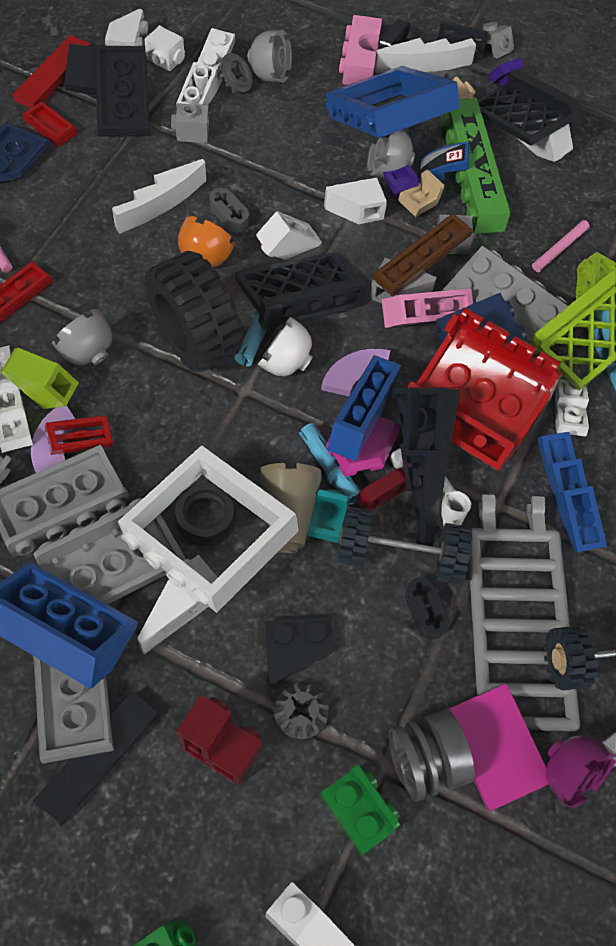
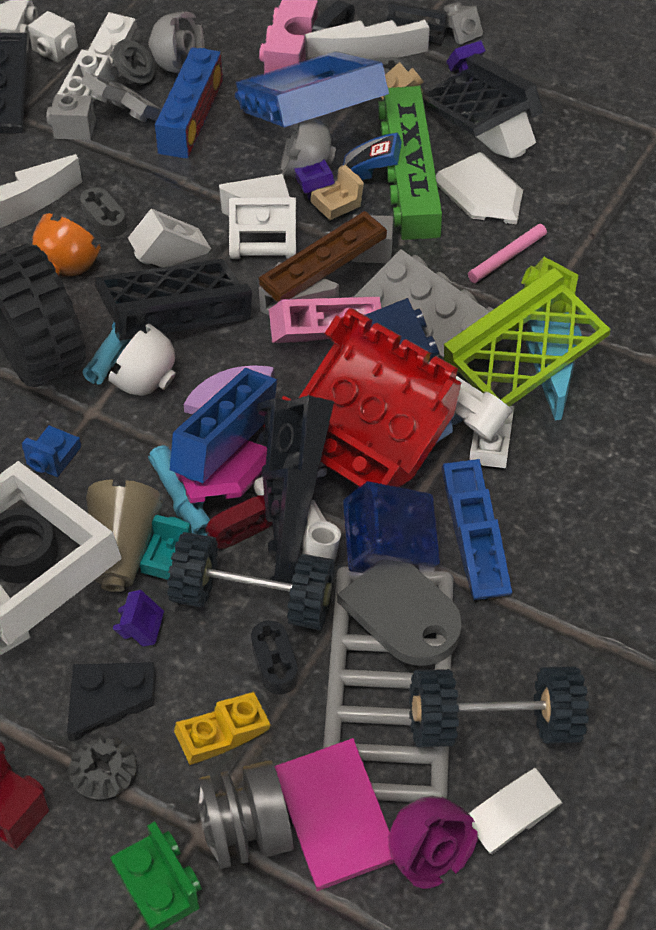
camera: 10 degrees right, 10 degrees down
(217, 428) = (51, 451): none -> blue bracket
(227, 102) = (121, 96): none -> light grey plate
(287, 110) = (189, 102): none -> blue brick
(315, 578) = (139, 618): none -> dark purple tile
(365, 216) = (262, 216): none -> white plate
(393, 673) = (226, 728): none -> yellow slope
(509, 497) = (389, 526): none -> clear blue bracket
(527, 566) = (402, 608): none -> dark grey tile
(533, 189) = (481, 189): none -> white tile
(572, 393) = (481, 410): none -> white piece

